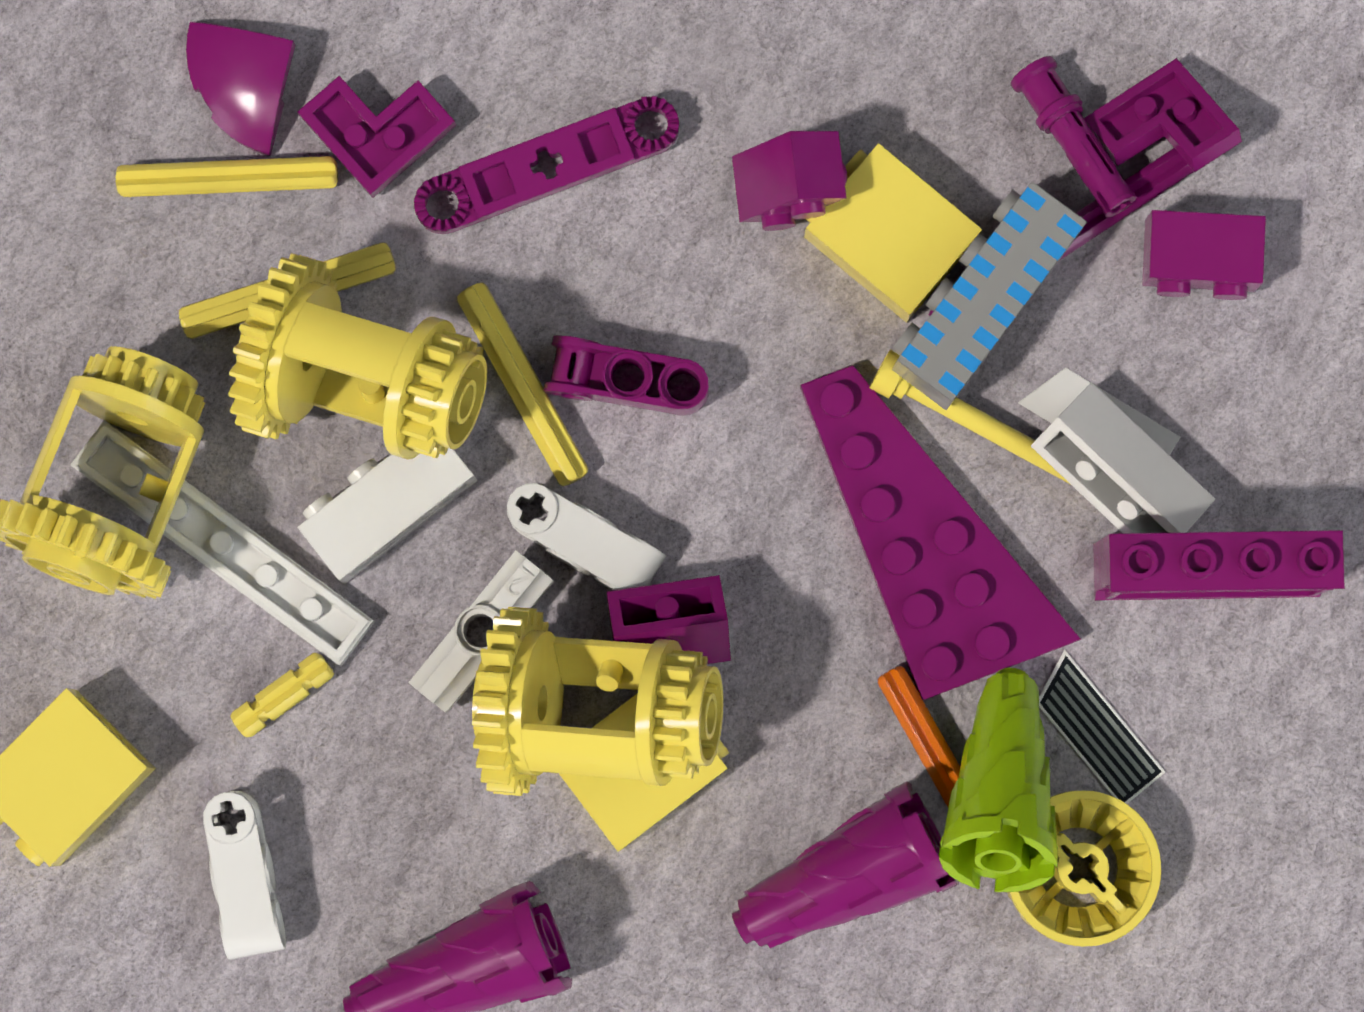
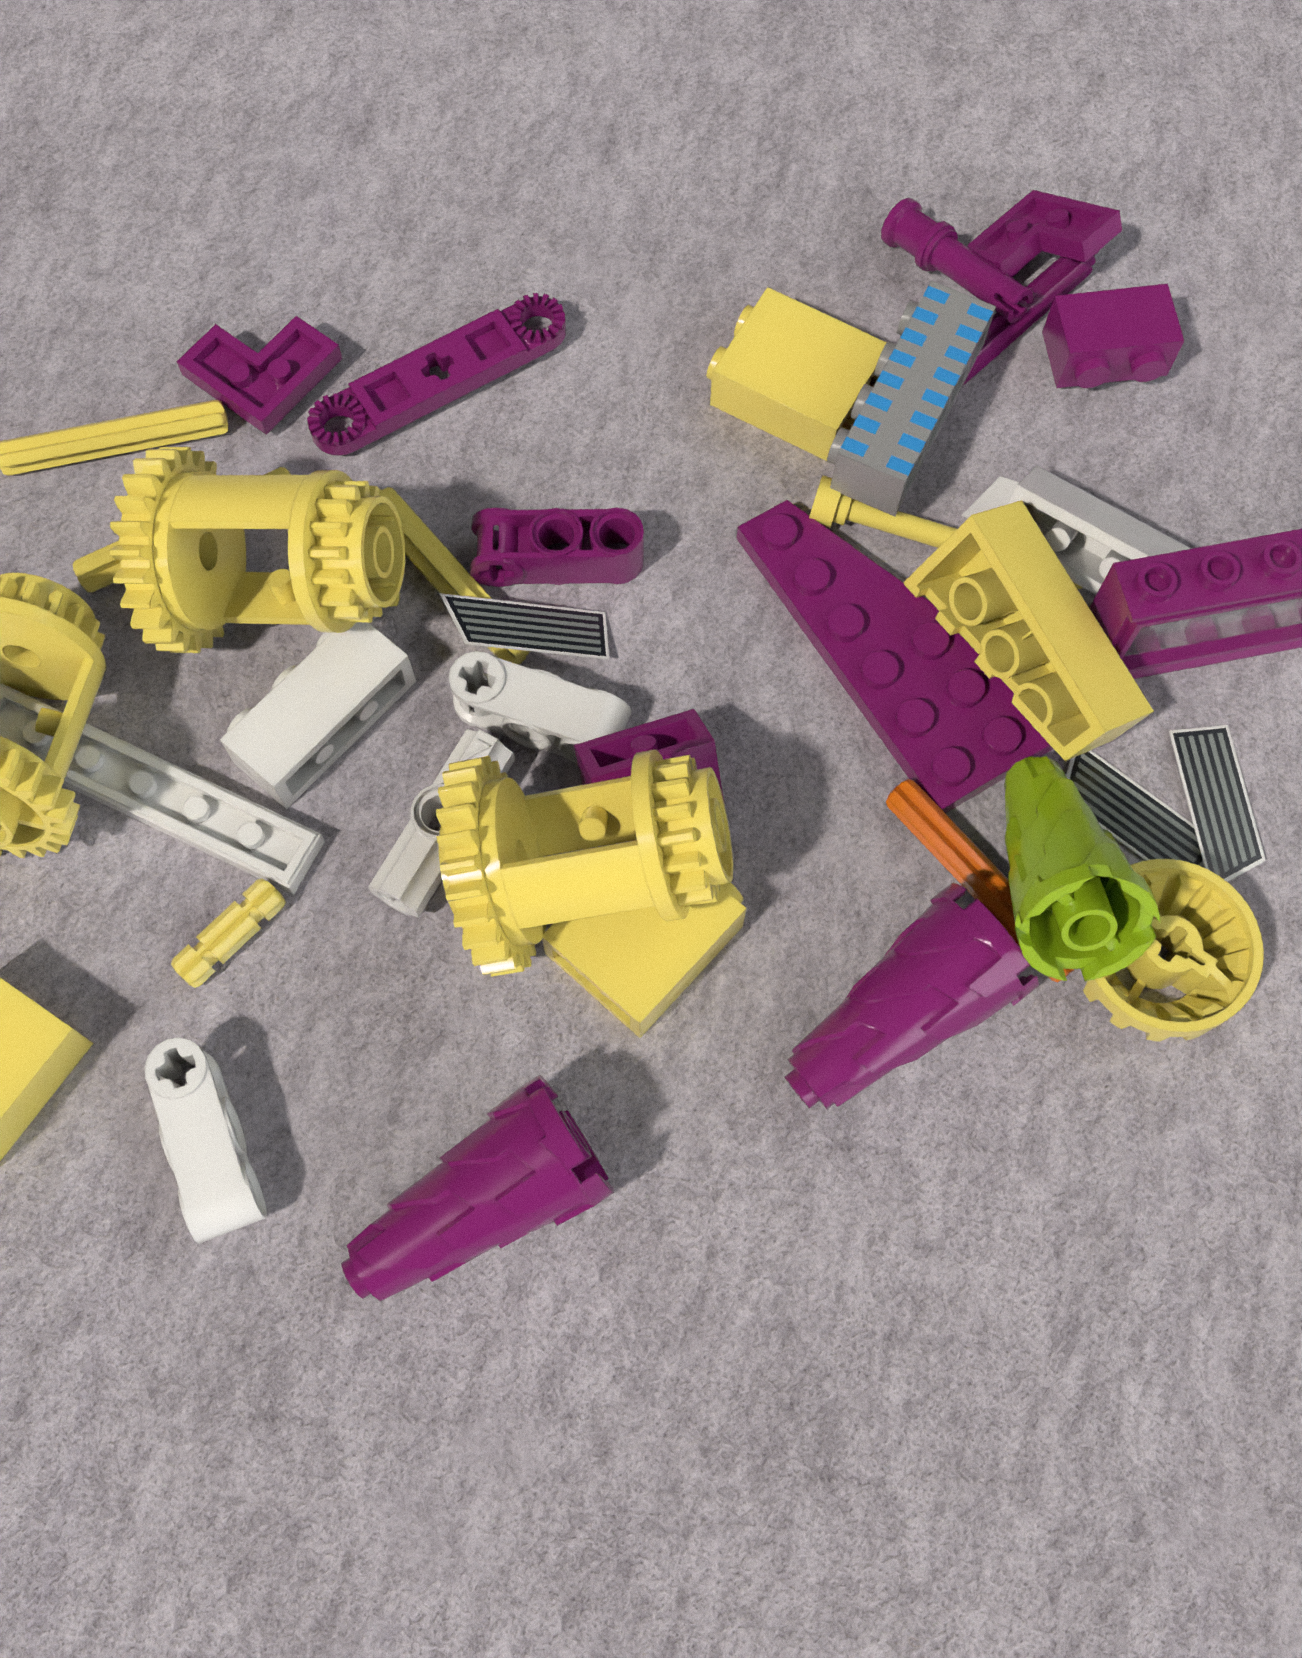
camera: 15 degrees left, 15 degrees down
(240, 80) = (119, 349): magenta brick -> none
(589, 455) = (529, 626): none -> sticker
(789, 178) = (685, 325): magenta brick -> none
(1038, 561) = (1031, 629): none -> light yellow wedge
(1174, 733) = (1217, 800): none -> sticker

